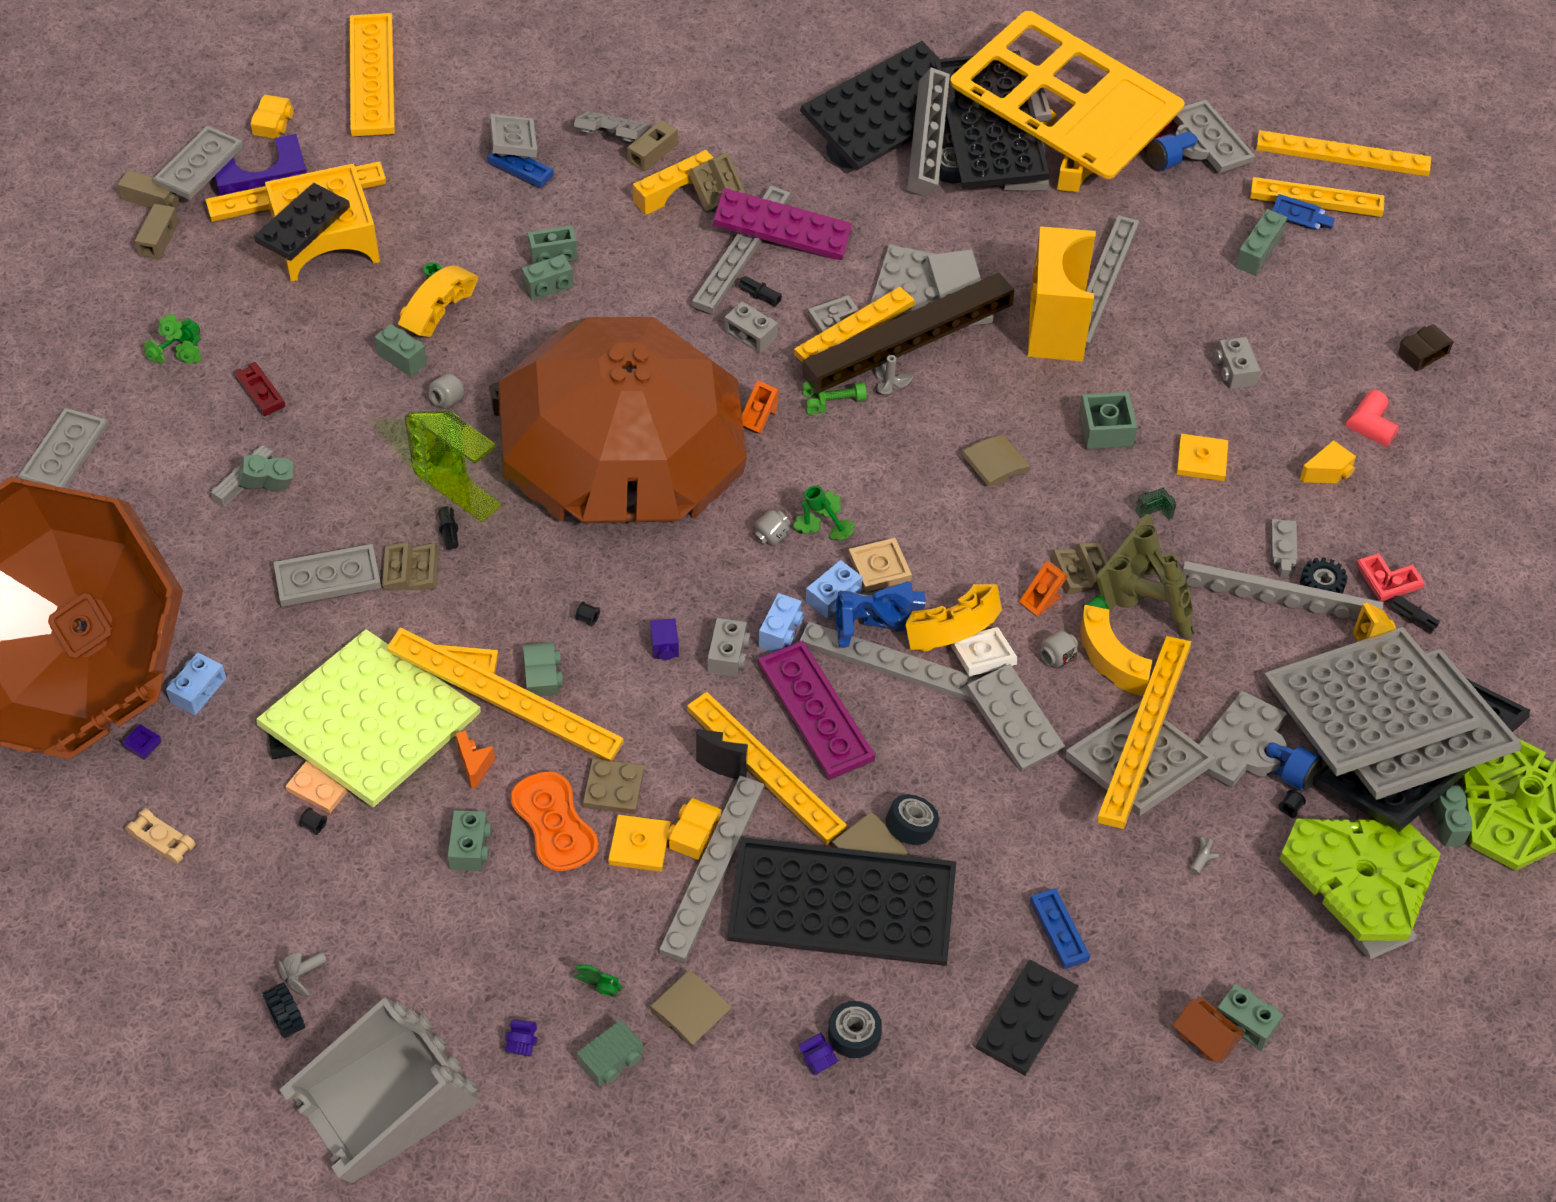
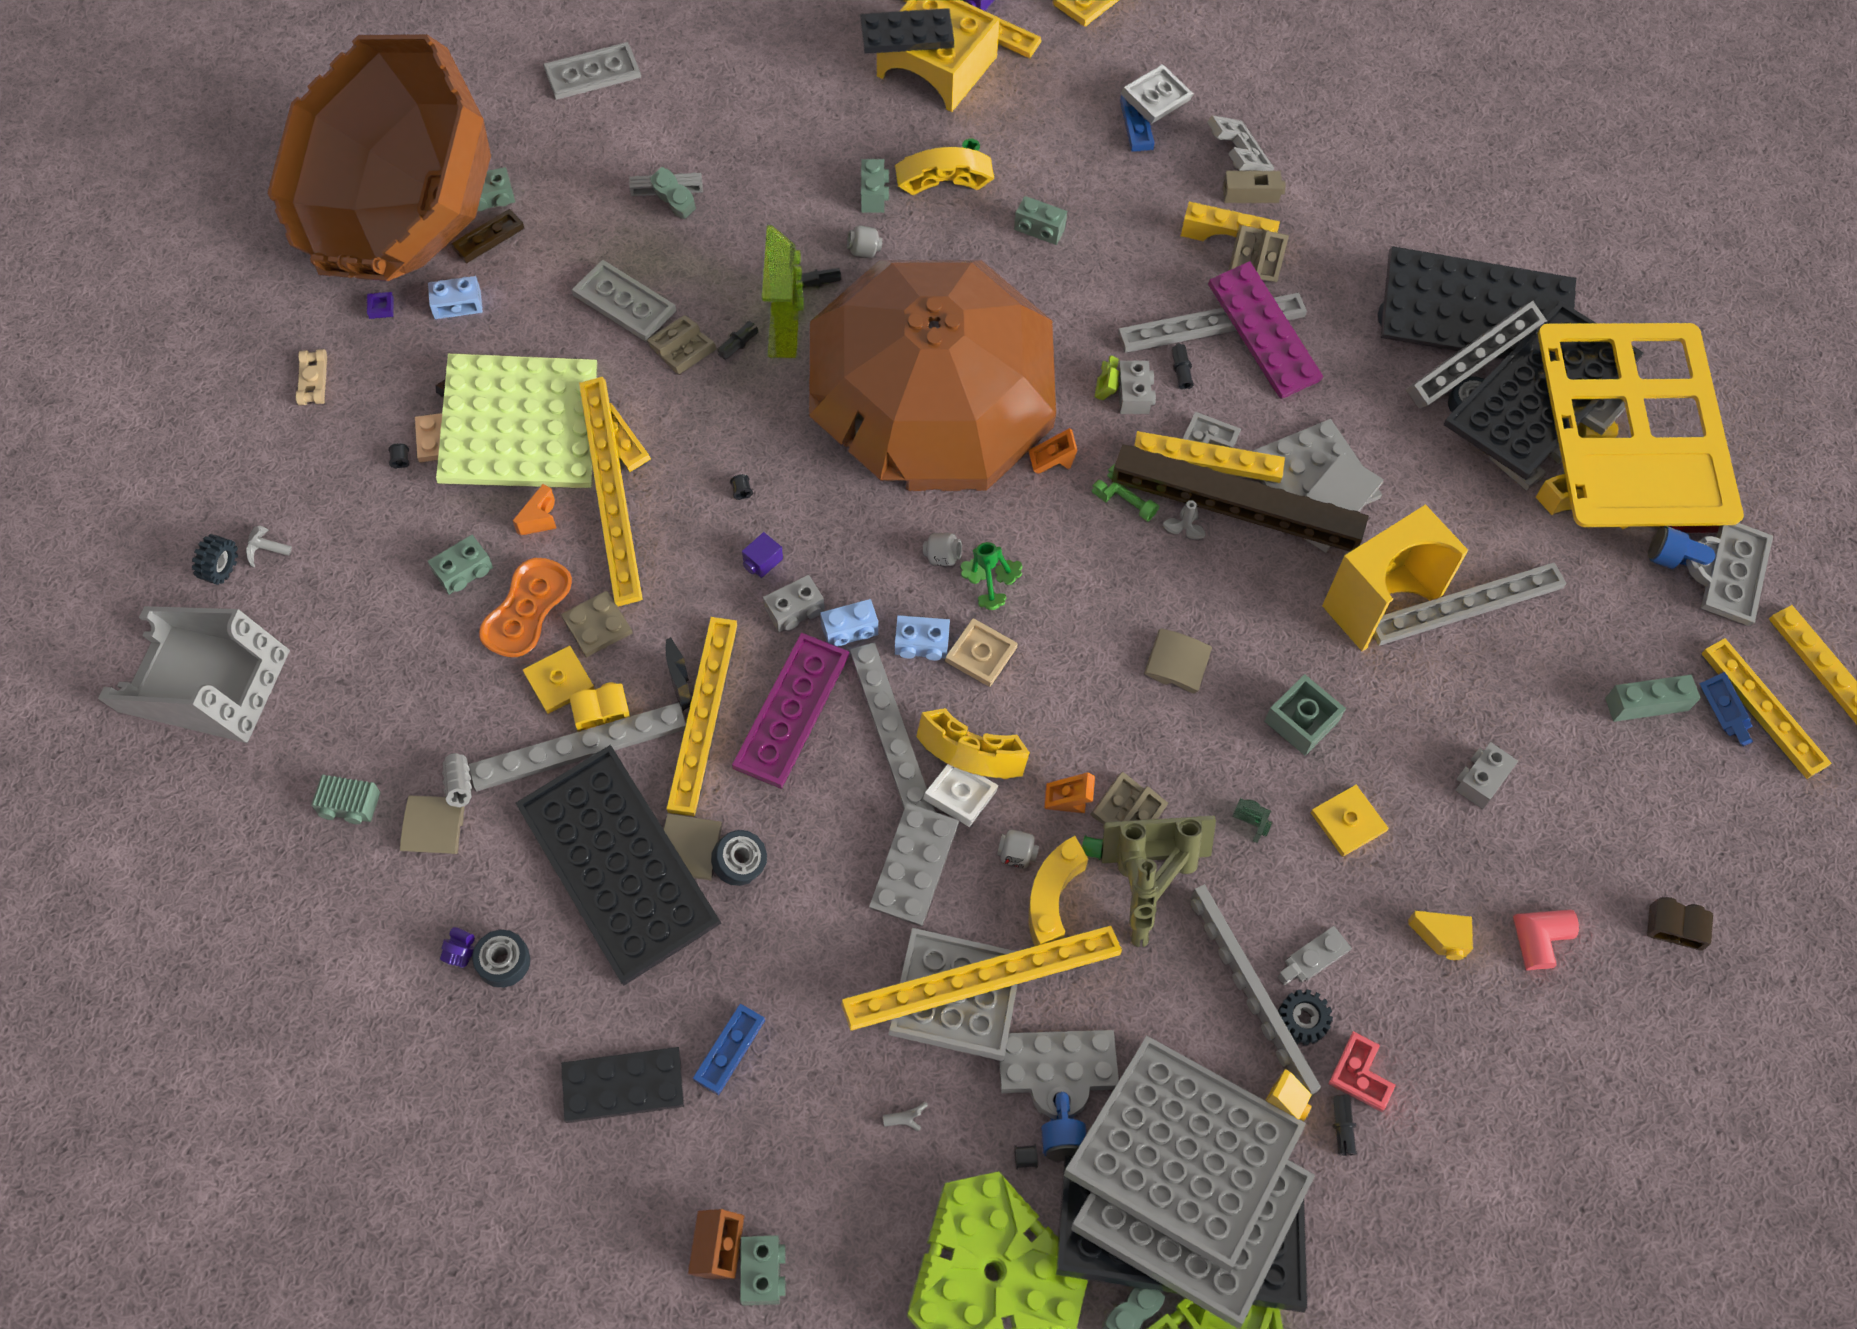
camera: 50 degrees right, 10 degrees up
(185, 331) = (761, 53): bright green plant -> none
(259, 389) = (754, 133): dark red plate -> none
(521, 1038) = (312, 729): dark purple piece -> none
(541, 668) = (659, 495): sand green brick -> none
(552, 243) = (1075, 198): sand green brick -> none
(605, 983) = (404, 750): green plate -> none
(671, 961) = (456, 780): none -> light grey axle
(729, 337) = (1108, 381): none -> lime plate
(881, 608) = (931, 682): blue hips -> none

